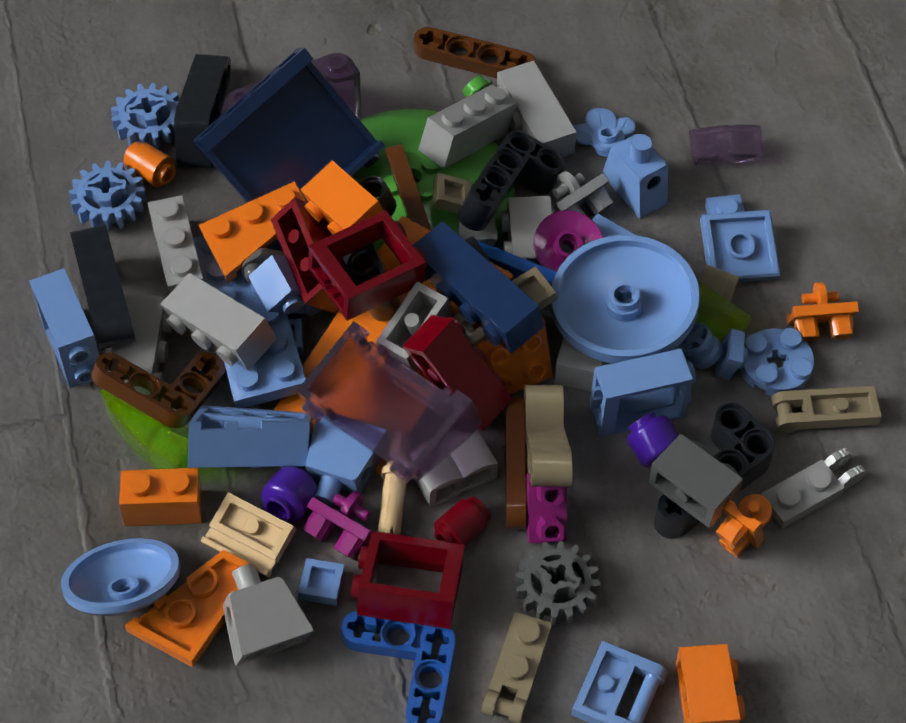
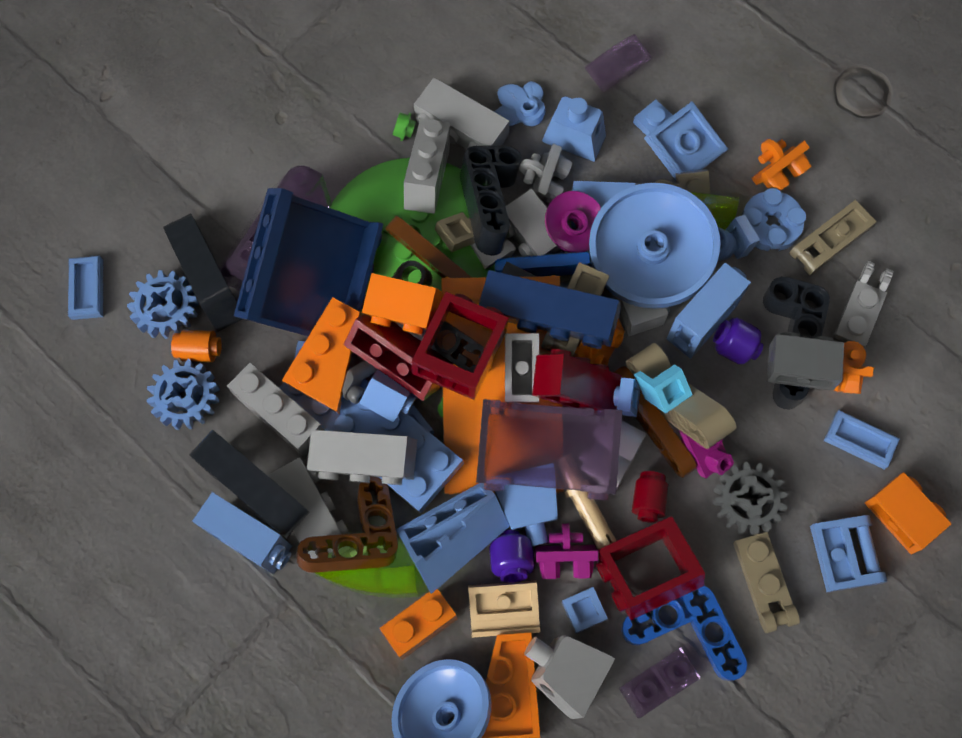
camera: 30 degrees left, 15 degrees up
(95, 70) = (85, 288): none -> medium blue tile
(343, 691) = (659, 683): none -> clear purple slope
(470, 61) = (376, 91): reddish brown beam -> none
(500, 415) = (627, 397): none -> medium blue plate
(537, 418) = (666, 389): none -> medium azure panel
(715, 604) = (861, 439): none -> medium blue tile

